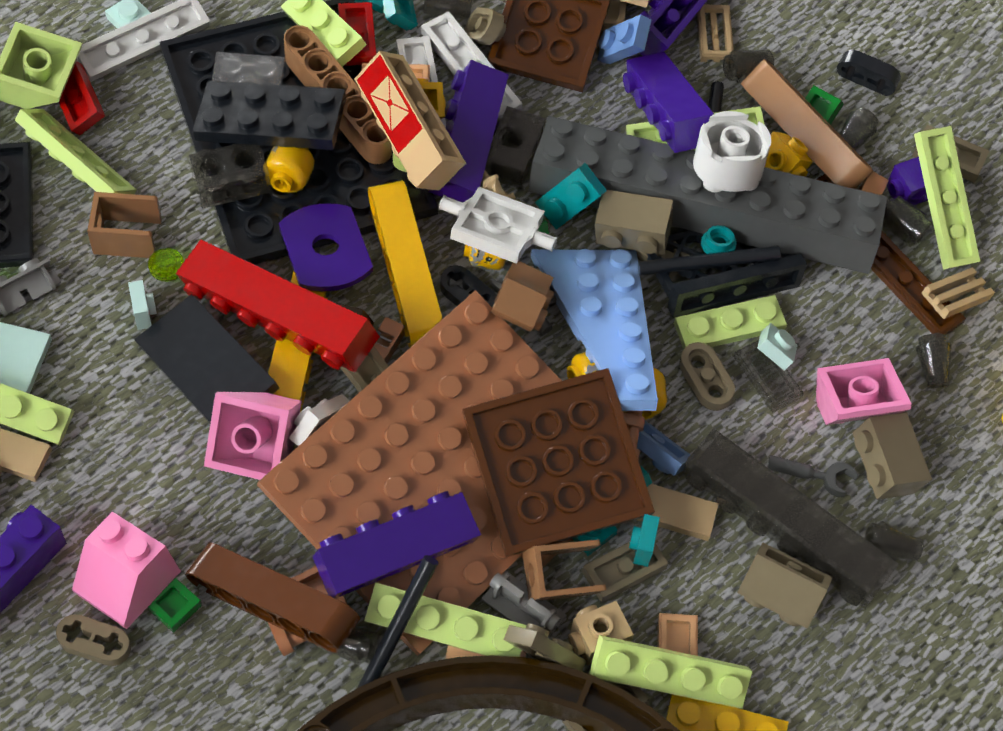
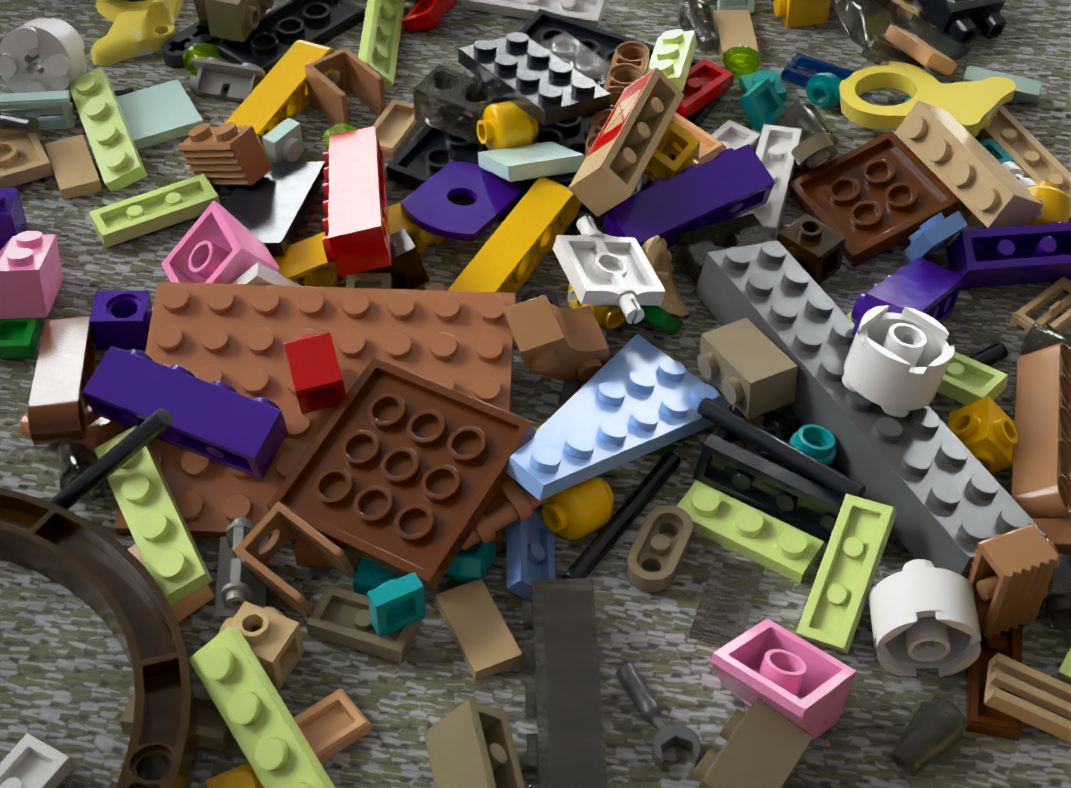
camera: 55 degrees right, 15 degrees down
(83, 274) = (281, 91): none -> yellow beam
(123, 432) = (153, 210): none -> yellowish green plate
(129, 350) = (226, 154): none -> medium nougat brick
(184, 223) = (395, 127): none -> tan tile
(228, 509) = (121, 319): none -> dark purple brick
(341, 181) = (530, 161): none -> light aqua tile
(439, 449) = (315, 372): none -> red brick
(536, 643) = (182, 583): dark tan plate -> none
(560, 100) = (813, 246): none -> dark brown brick
(571, 196) = (715, 306): teal plate -> none
(673, 403) = (623, 517): none -> black bar
(777, 346) = (761, 578): light aqua plate -> none
(817, 305) = (846, 573): none -> yellowish green plate
(880, 298) = (924, 620): none -> white brick
(899, 239) = (1011, 578): none -> medium nougat brick

